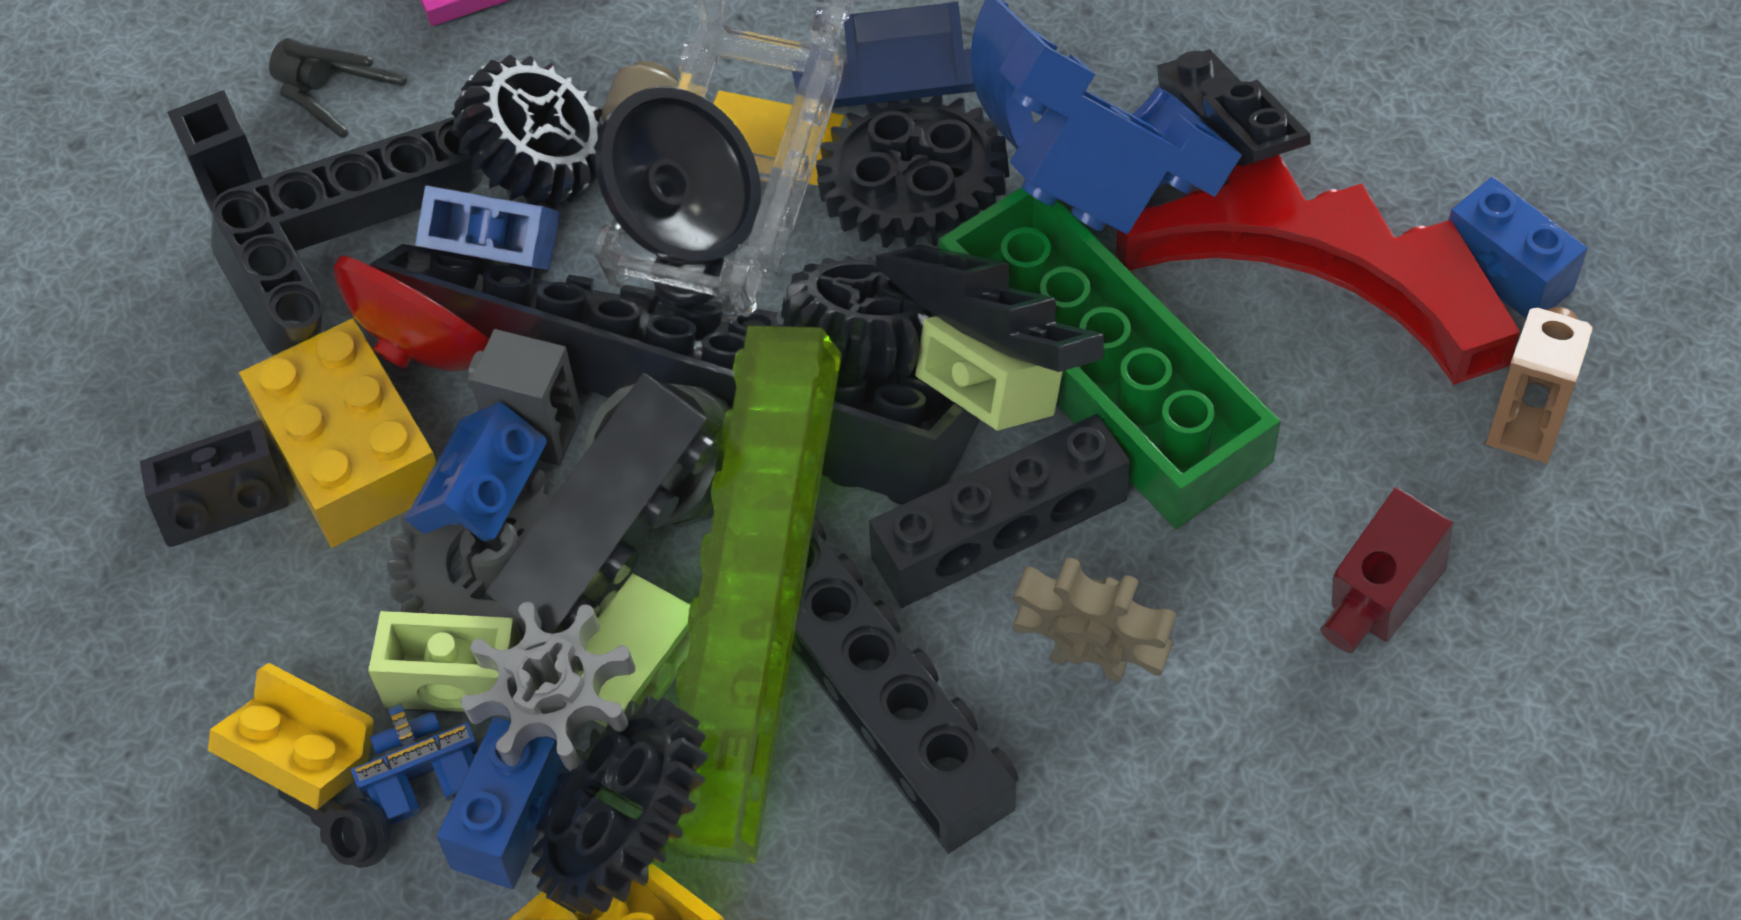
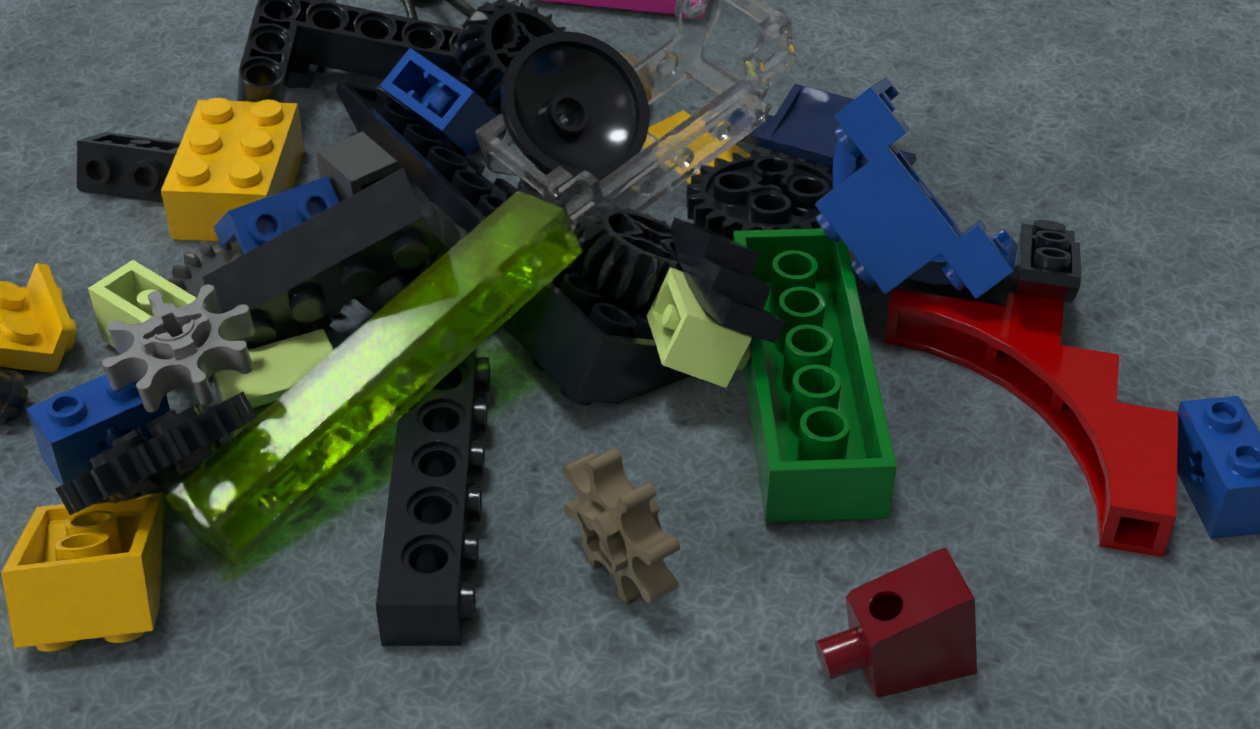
camera: 30 degrees right, 15 degrees down
(388, 777) = (64, 368): blue hips -> none
(406, 320) = (319, 115): red dish -> none
(999, 510) = (656, 429): black brick -> none
(1546, 355) = (1167, 565): medium nougat torso -> none

